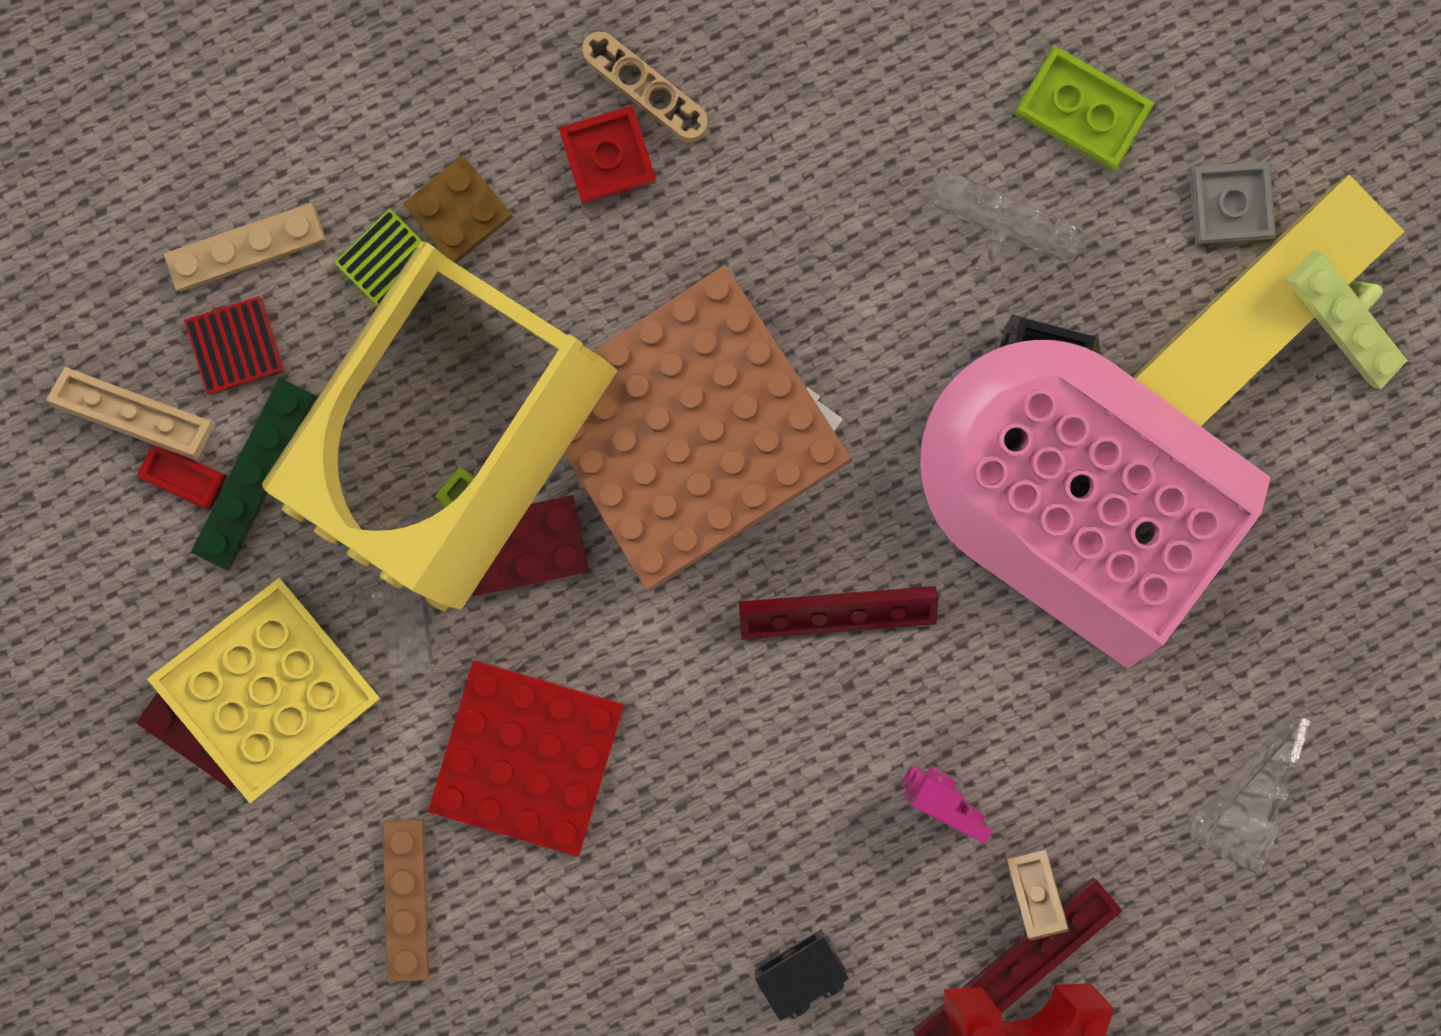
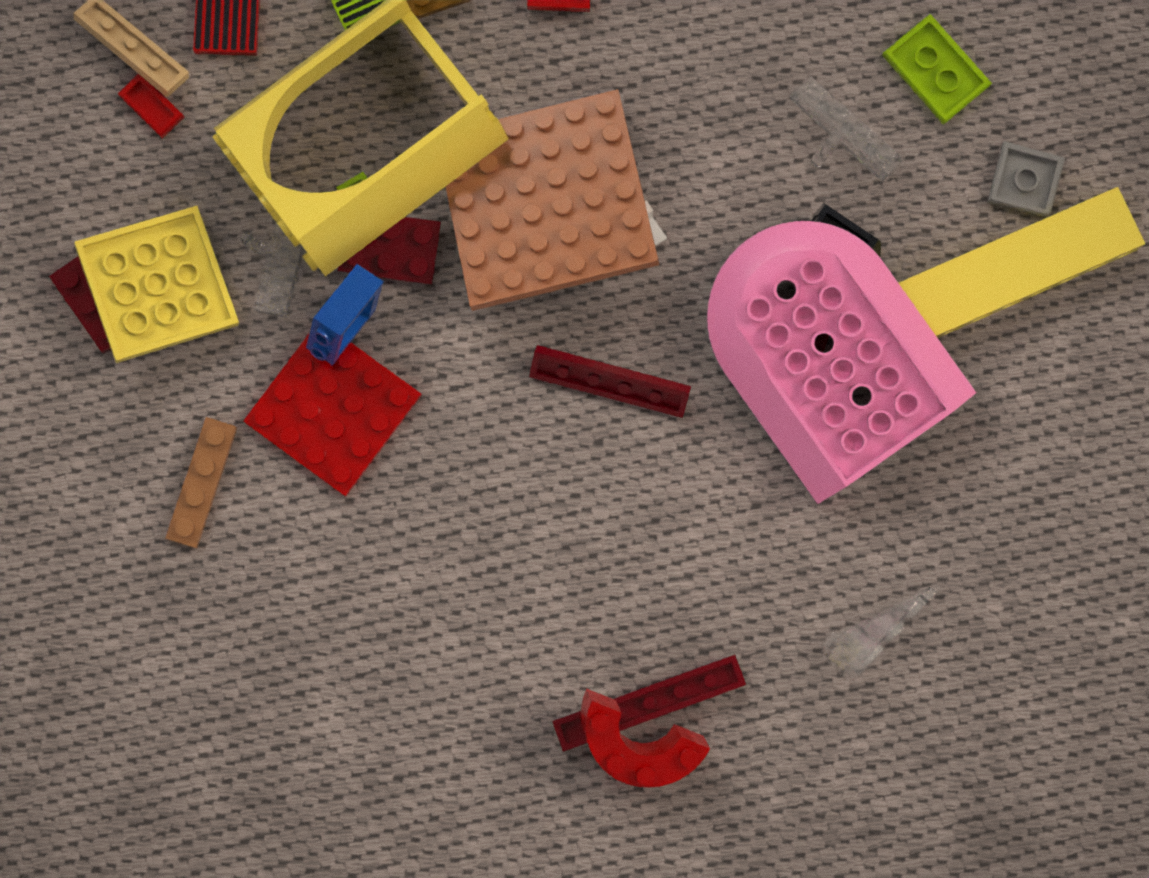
camera: 25 degrees right, 5 degrees down
(243, 490) = (198, 127): dark green plate -> none
(500, 651) = (344, 314): none -> blue window
(801, 976) = (481, 646): black brick -> none
(937, 796) = (633, 540): dark pink plate -> none
(1037, 895) = (685, 648): tan plate -> none
(1346, 318) = (1079, 294): yellowish green plate -> none

